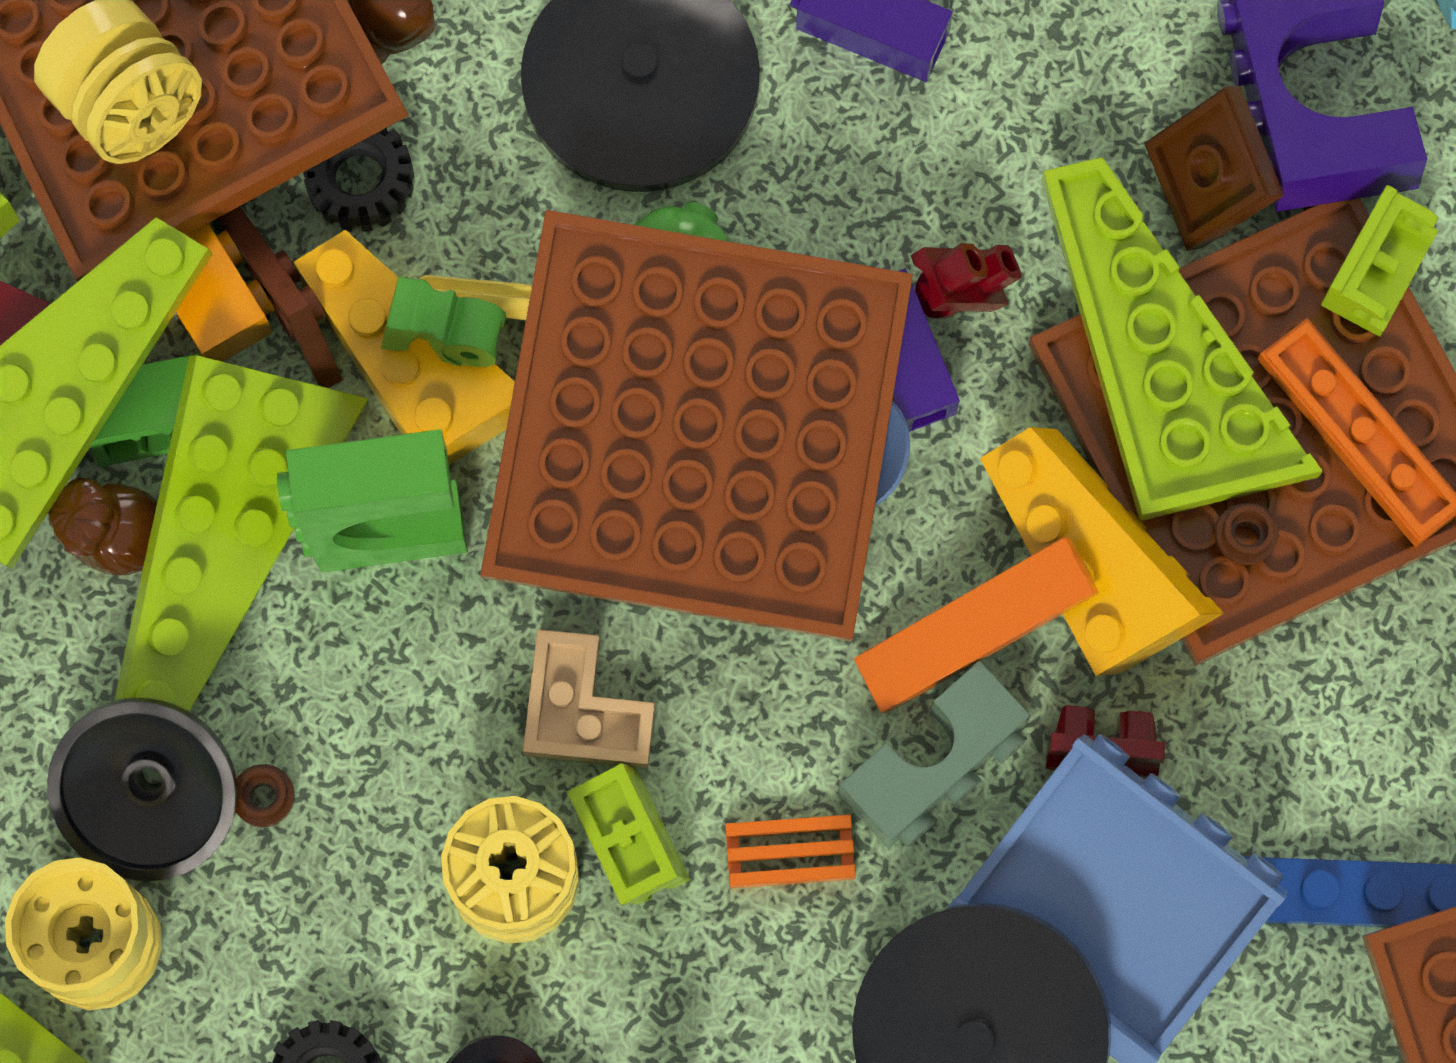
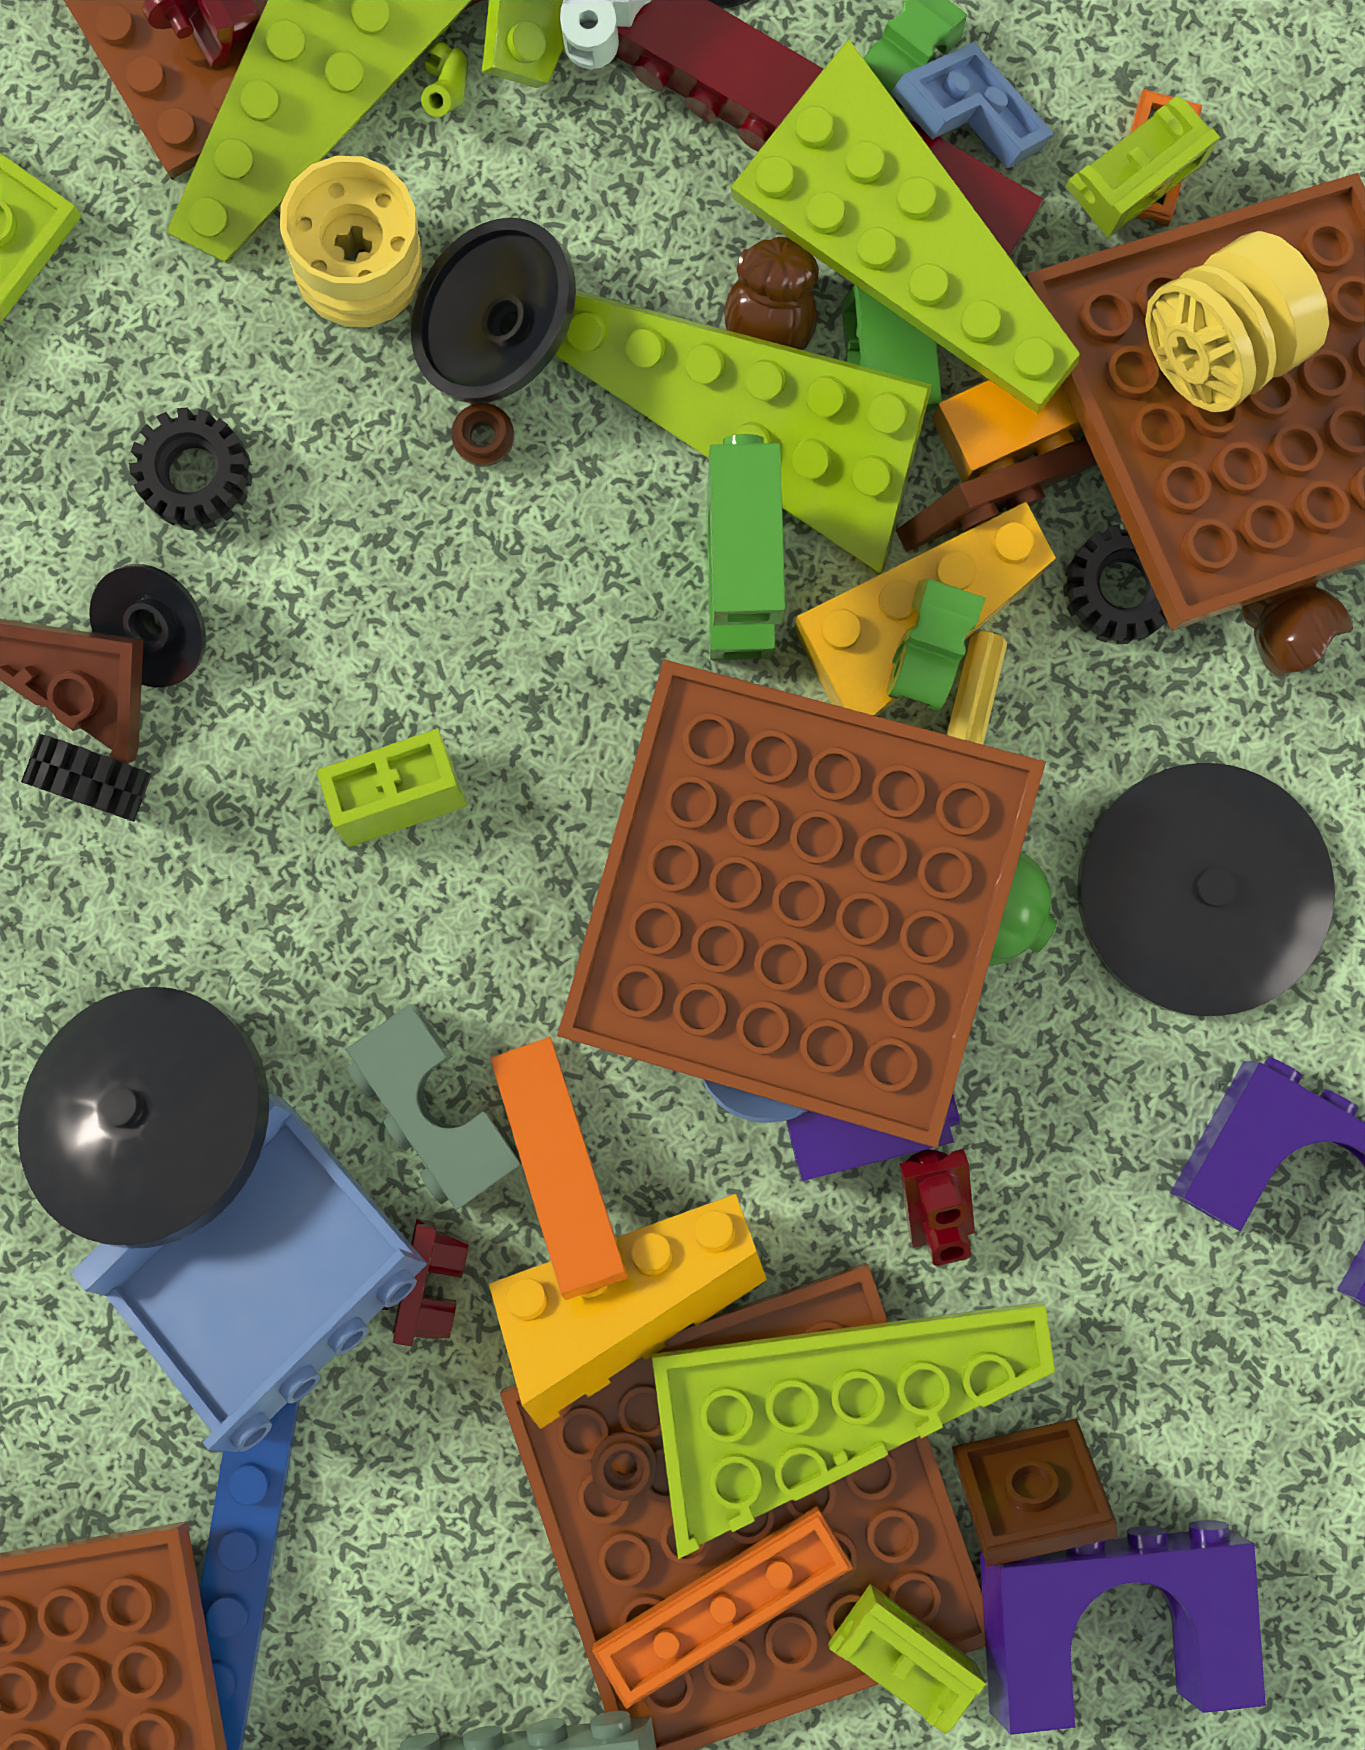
camera: 95 degrees right, 10 degrees up
(537, 895) = (383, 694): light yellow wheel -> none
(568, 719) = (520, 740): tan plate -> none
(841, 847) = (358, 1002): orange tile -> none

